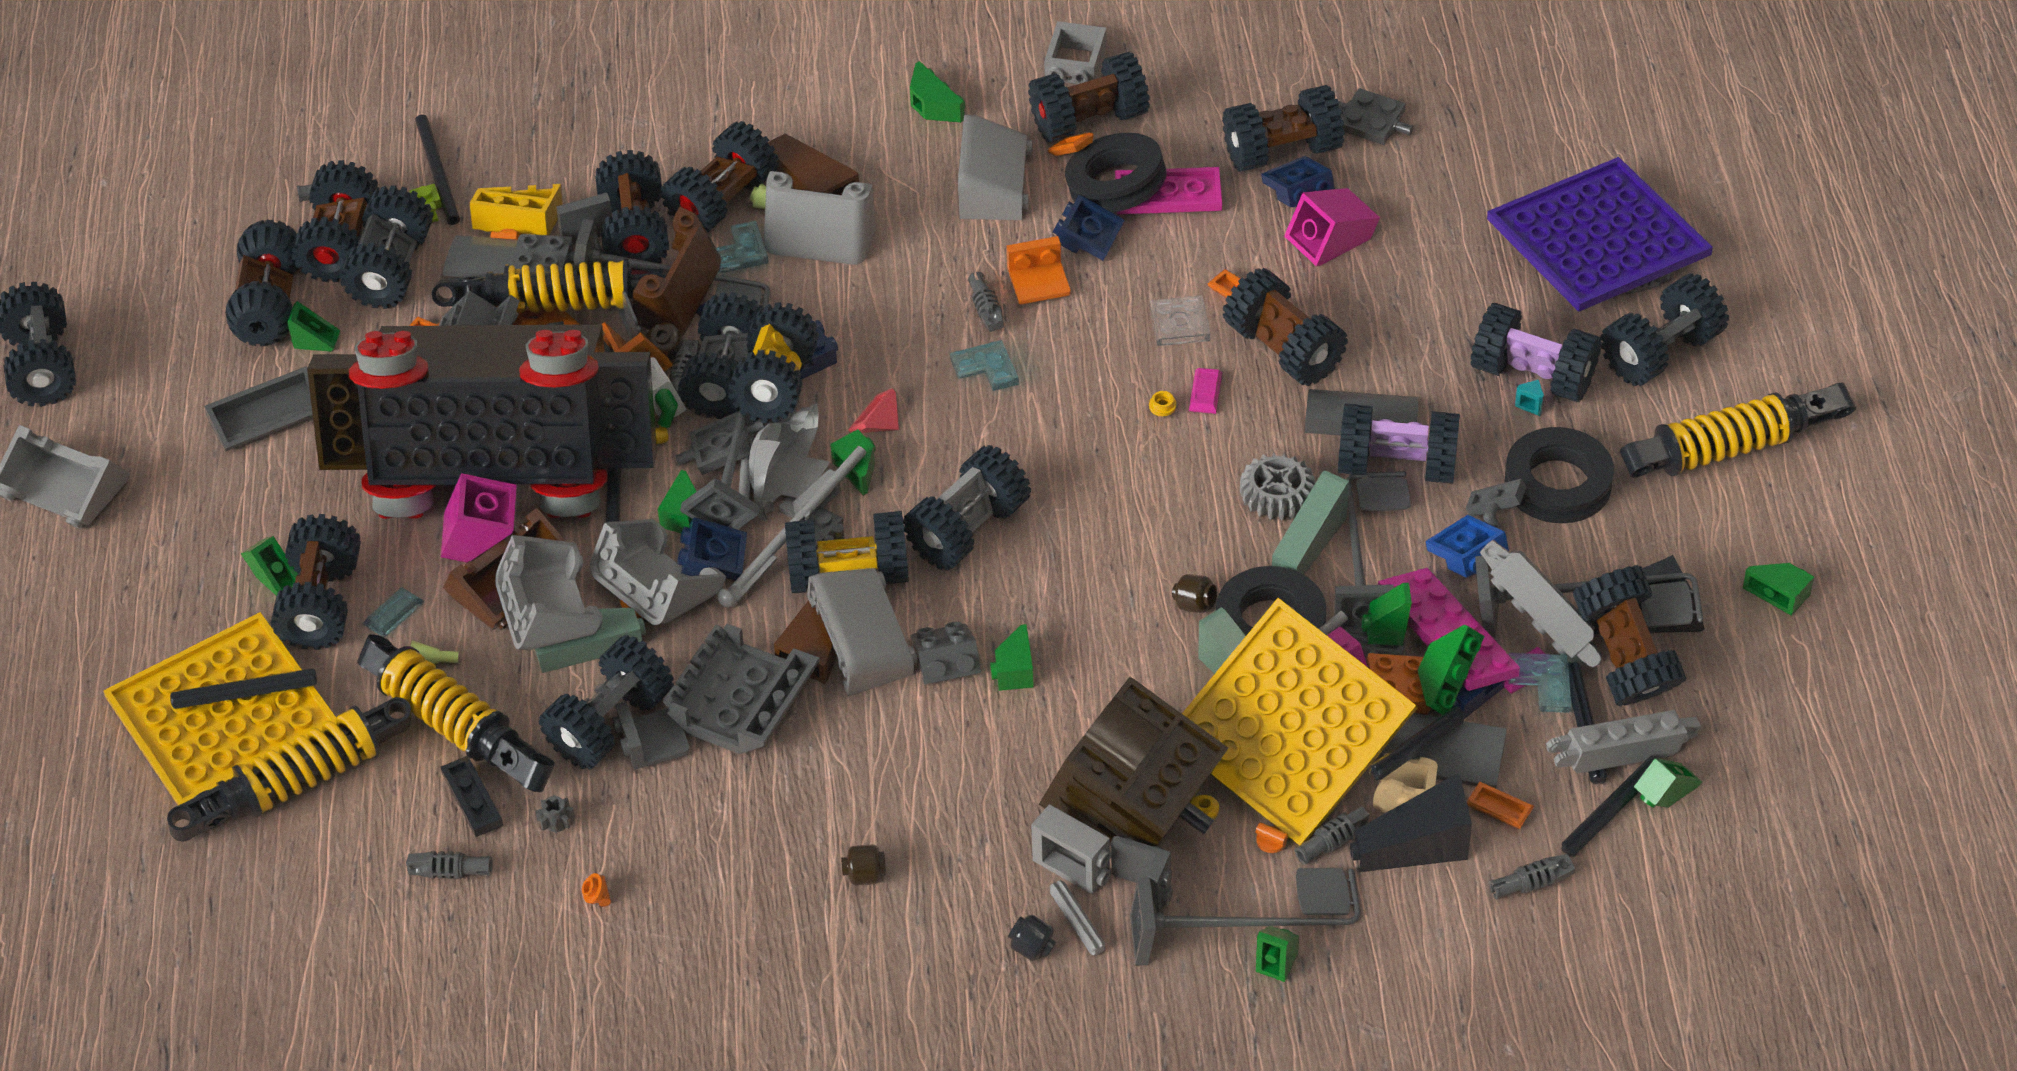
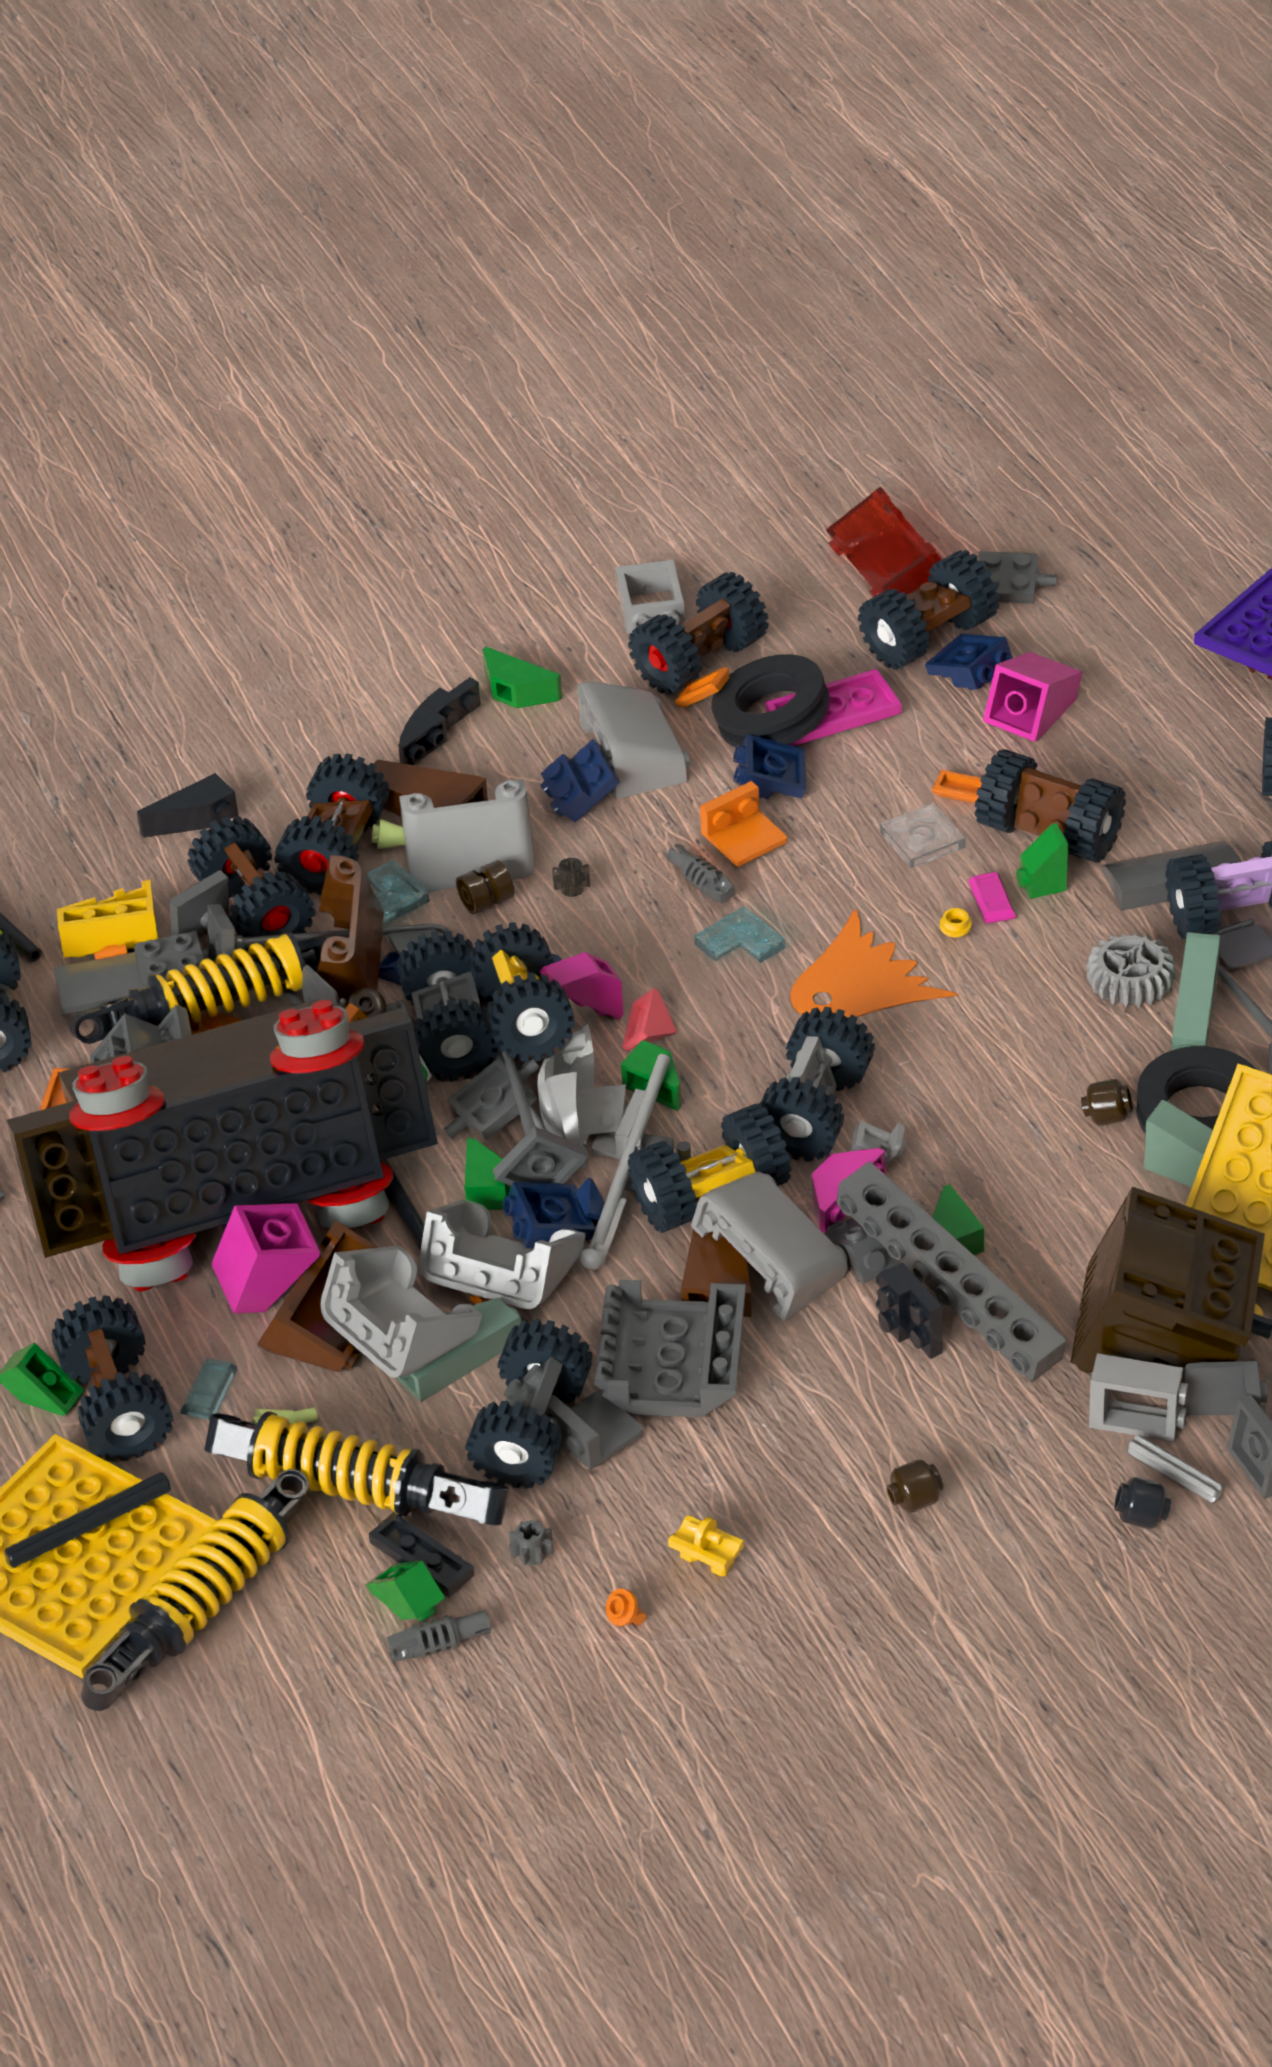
camera: 20 degrees left, 5 degrees down
(444, 822) = (407, 1590): none -> green slope
(630, 132) = (189, 808): none -> black slope
(682, 860) = (707, 1544): none -> yellow hips
(750, 549) = (590, 1199): none -> dark blue slope
(812, 264) = (489, 885): none -> dark brown wheel
(835, 368) = (589, 983): none -> dark pink slope
(845, 113) = (433, 717): none -> black slope
(883, 275) = (571, 877): none -> clear smoke gear
(930, 196) = (579, 781): none -> dark blue plate
(934, 718) = (909, 1310): none -> black plate
(950, 597) = (830, 1174): none -> dark pink slope
(950, 608) = (968, 1275): none -> dark grey brick
(995, 571) = (871, 1137): none -> light grey bracket
(1063, 427) = (860, 976): none -> orange piece
(1254, 376) = (1044, 864): none -> green slope
(1284, 61) = (883, 545): none -> clear red windscreen

